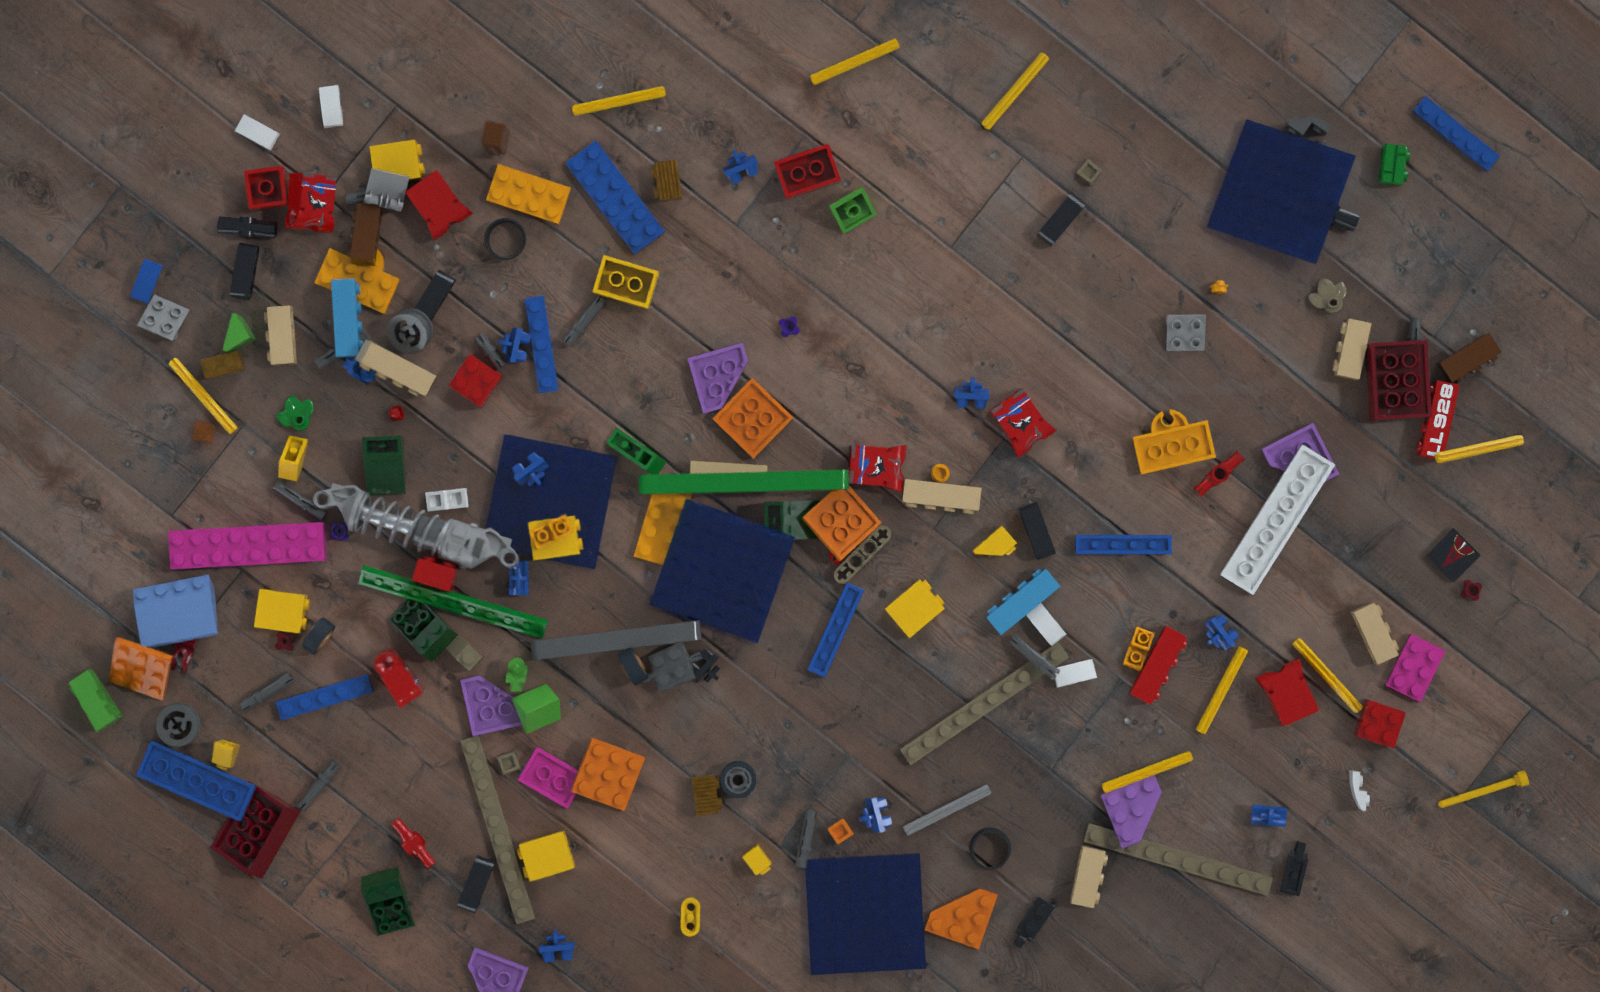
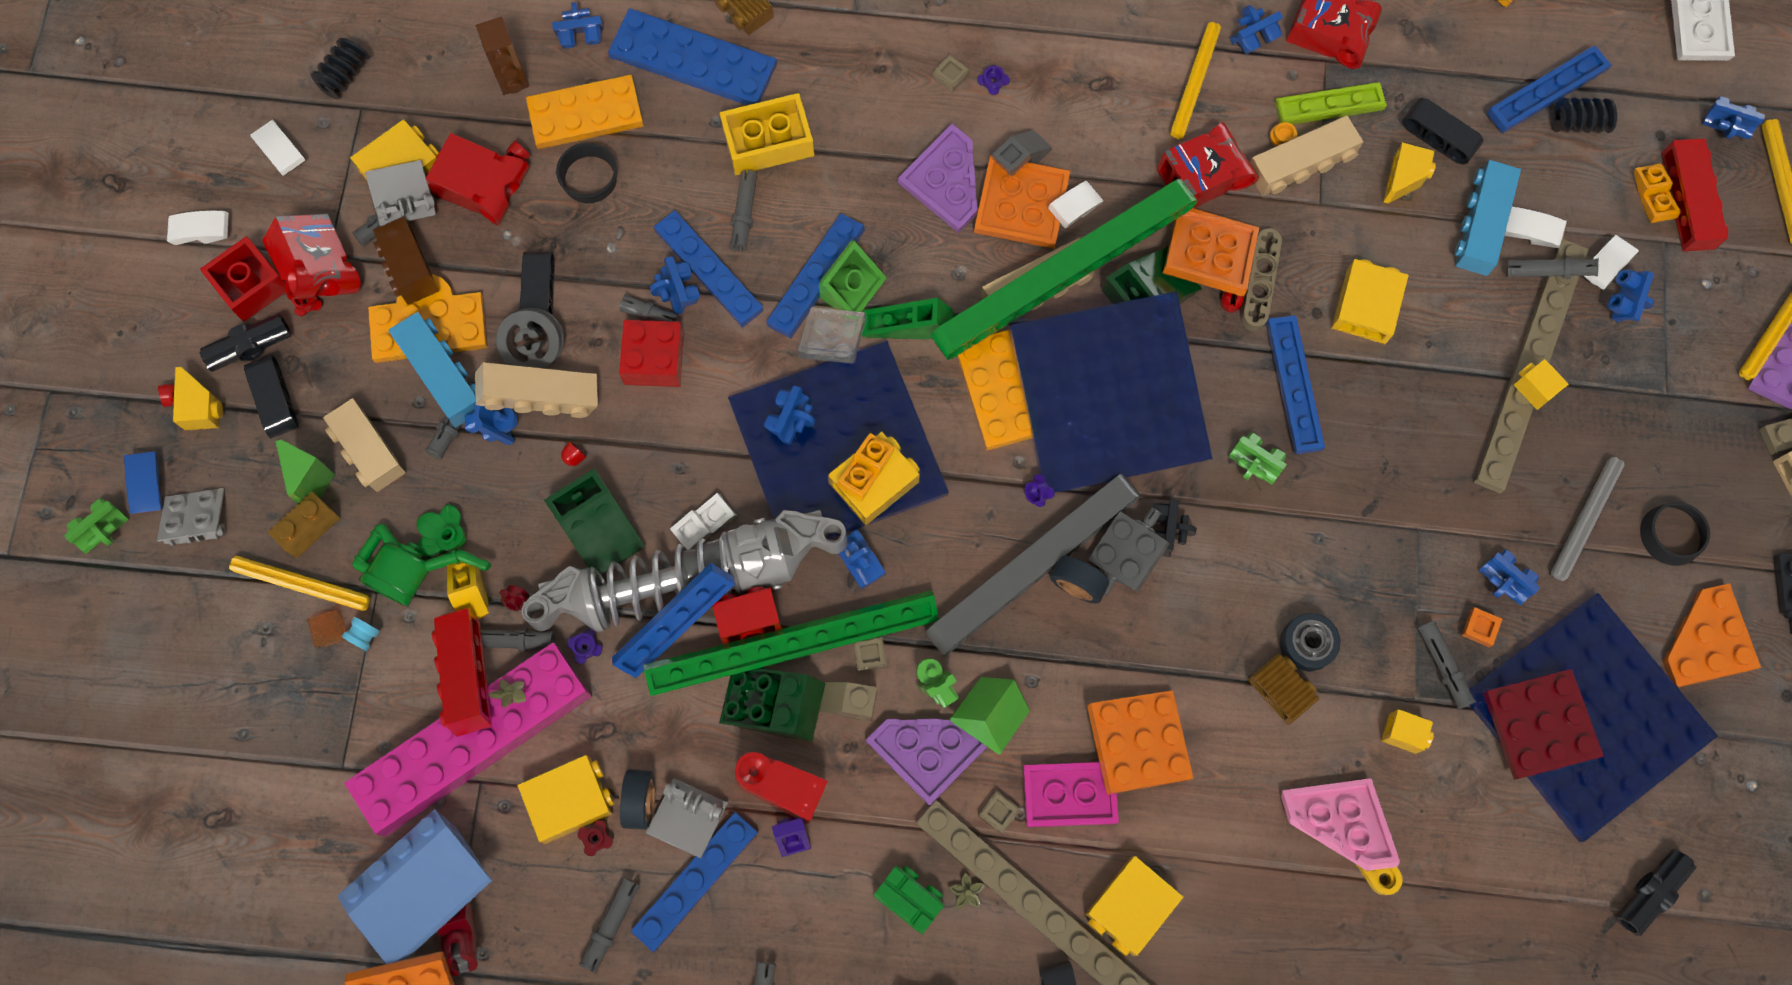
camera: 30 degrees left, 15 degrees down
(108, 294) = (95, 527): none -> bright green hips
(188, 233) = (166, 394): none -> red hinge
(200, 248) = (193, 404): none -> yellow slope
(220, 448) = (360, 634): none -> medium azure wheel
(261, 423) = (399, 568): none -> green piece
(263, 510) = (461, 673): none -> red brick
(282, 539) = (509, 693): none -> olive plant
(316, 480) = (513, 597): none -> dark red plate
(340, 661) = (686, 818): none -> light grey hinge
(387, 707) = (791, 836): none -> dark purple plate
(393, 552) = (673, 620): none -> blue plate
(396, 75) = (338, 65): none -> black piece
(431, 778) = (910, 899): none -> green brick
(464, 792) = (966, 892): none -> olive plant
(473, 198) = (518, 151): none -> red hinge
(493, 633) = (870, 654): none -> dark tan tile
(548, 132) = (567, 29): none -> blue hips
(586, 434) = (832, 335): none -> clear plate
(601, 388) = (805, 289): none -> blue plate
(619, 408) = (851, 280): none -> bright green slope
(645, 600) = (1038, 491): none -> dark purple plate
(687, 883) = (1345, 820): none -> bright pink plate
(766, 305) = (951, 73): none -> dark tan tile
(771, 388) = (1020, 150): none -> dark grey slope
(779, 661) = (1257, 460): none -> bright green hips
(783, 440) = (1075, 204): none -> white slope
(831, 902) = (1543, 724): none -> dark red plate
(912, 403) = (1195, 80): none -> yellow axle
(971, 719) = (1540, 383): none -> yellow brick
(984, 469) = (1330, 104): none -> lime tile
(1070, 703) = (1632, 295): none -> blue hips
(1129, 574) = (1584, 115): none -> black piece

